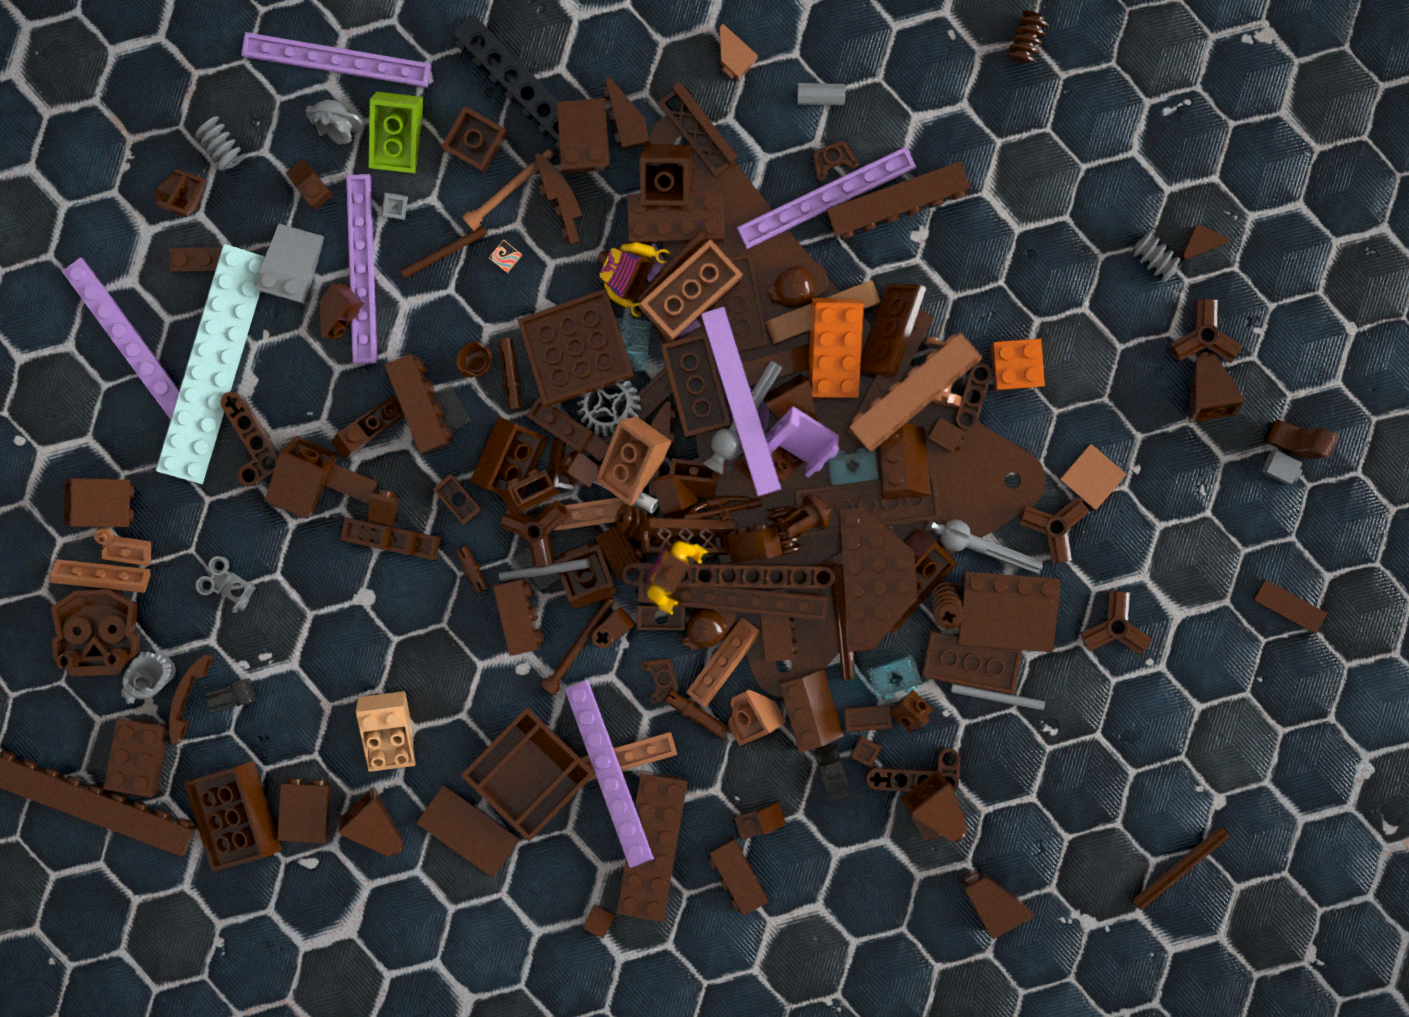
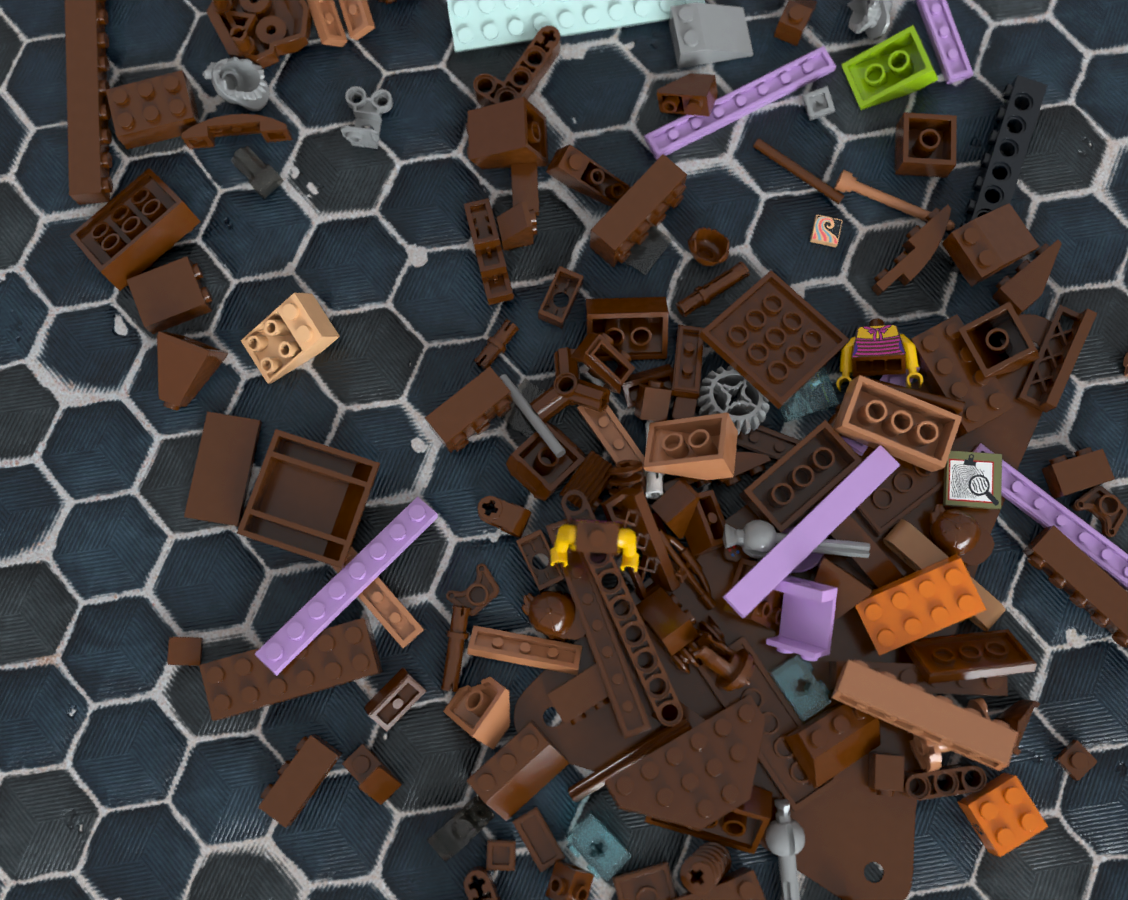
camera: 60 degrees right, 10 degrees down
(552, 683) = (418, 480): reddish brown piece -> none
(712, 778) = (394, 699): none -> reddish brown slope
(761, 251) = (973, 480): none -> tile
(796, 164) = (1078, 473): none -> reddish brown brick
(957, 321) = (1017, 718): none -> reddish brown slope
(1007, 286) = (1075, 760): none -> reddish brown plate

